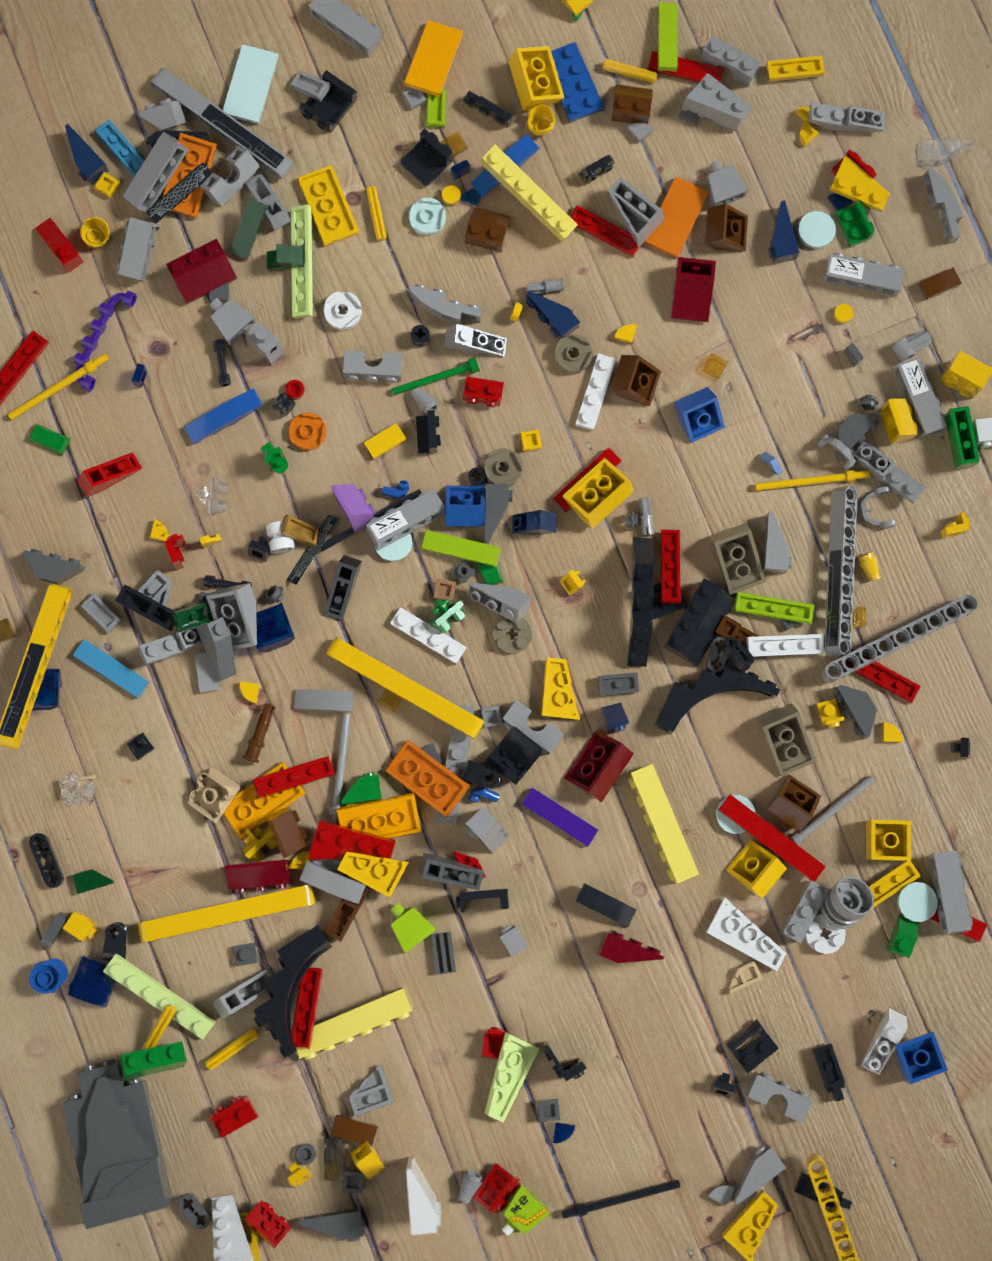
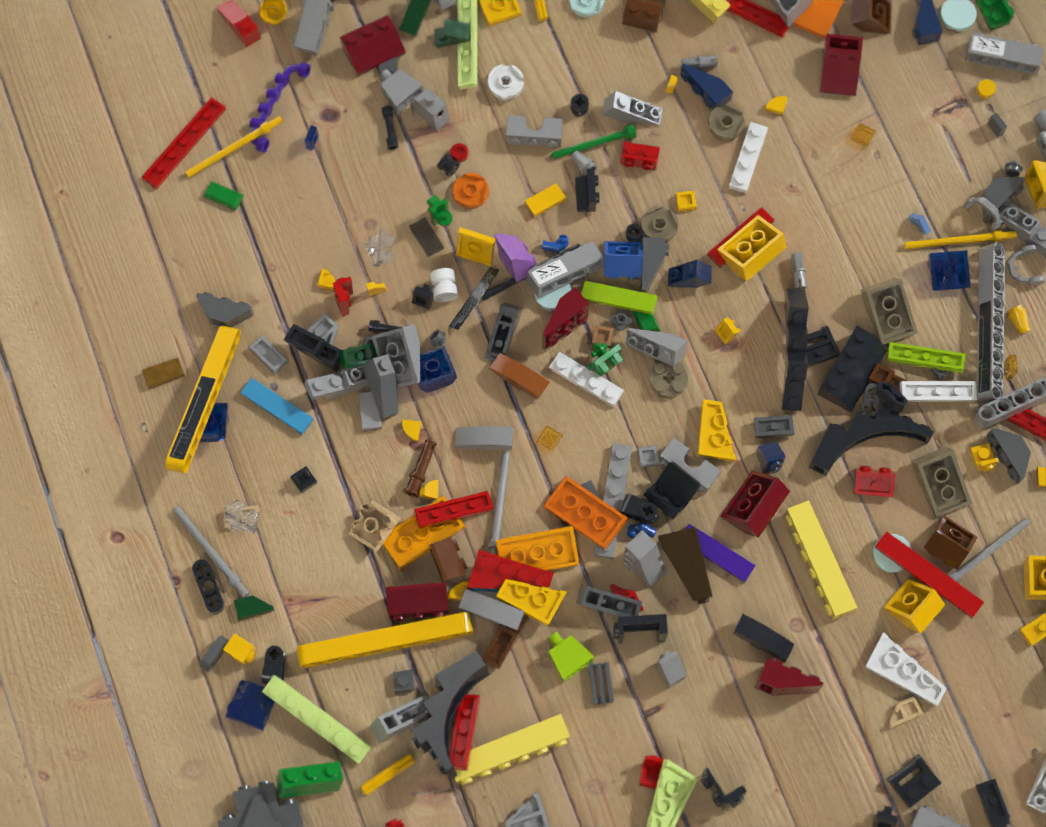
camera: 10 degrees right, 10 degrees down
(48, 976) = (206, 697): blue hat -> none
(71, 853) = (233, 580): none -> light grey bar
(108, 474) = (277, 226): red slope -> none
(159, 1027) = (318, 745): yellow axle -> none
(223, 416) = (390, 174): blue slope -> none
(256, 840) = (426, 567): yellow hips -> none
(262, 483) = (426, 237): none -> clear smoke tile
(270, 756) = (430, 490): none -> yellow tile
(299, 530) = (462, 278): pearl gold tile -> none
(312, 496) = (475, 246): none -> yellow tile
(359, 634) = (519, 376): none -> dark orange slope
(364, 790) = (522, 522): green slope -> none
(405, 688) = (564, 426): yellow beam -> none
(409, 567) = (570, 311): none -> dark red slope
(436, 303) = (595, 76): light grey slope -> none
(529, 825) = (688, 561): none -> dark brown slope
(632, 520) = (785, 274): dark grey plate -> none
(635, 379) = (787, 145): reddish brown slope -> none
(670, 567) = (823, 316): red tile -> none
(699, 414) = (849, 177): blue slope -> none
(719, 740) = (874, 482): none -> red bracket
(775, 550) = (926, 303): light grey slope -> none
(799, 514) = (949, 270): none -> clear blue slope
(805, 911) = (964, 647): light grey arch -> none
(820, 944) = (981, 681): white plate -> none
(847, 902) = (1007, 636): light grey wheel -> none

